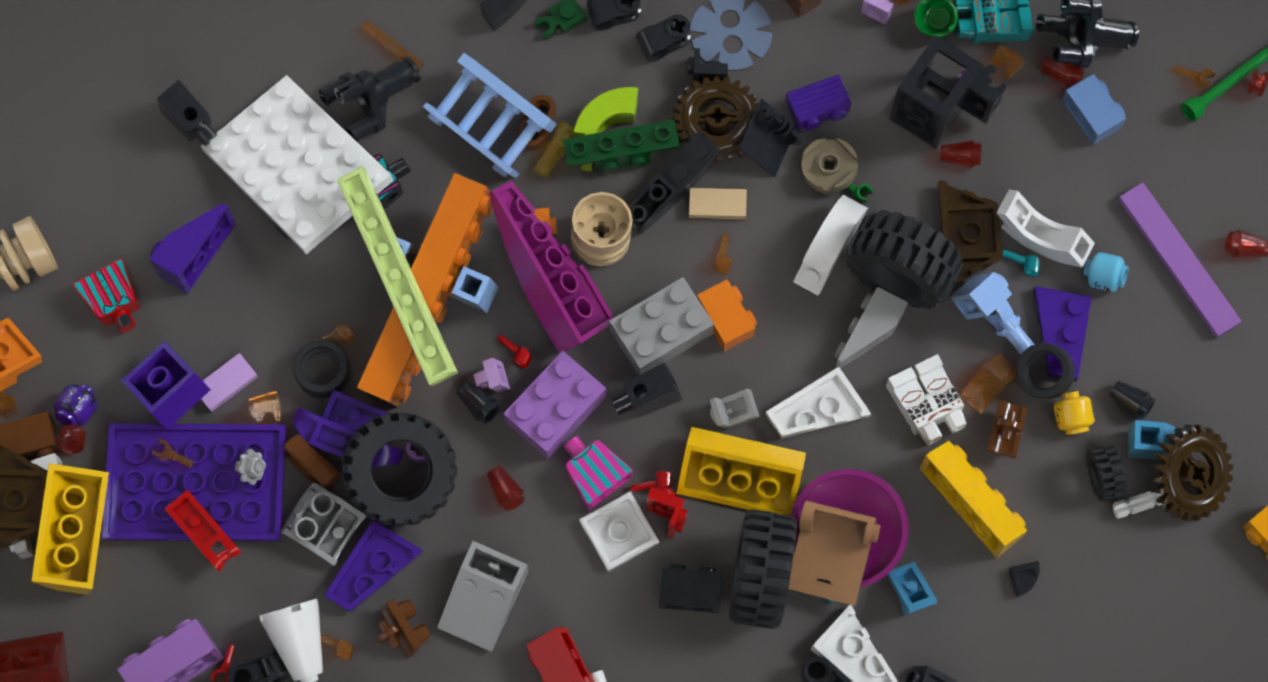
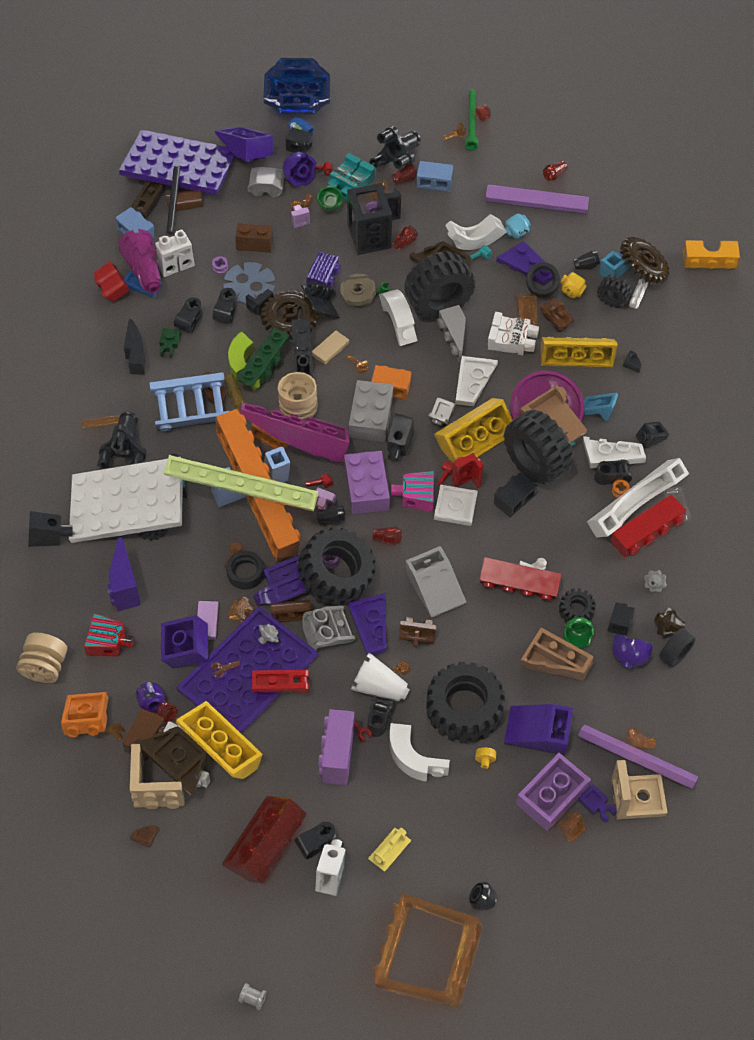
camera: 50 degrees left, 15 degrees down
(987, 297) = (491, 274): light blue brick -> none

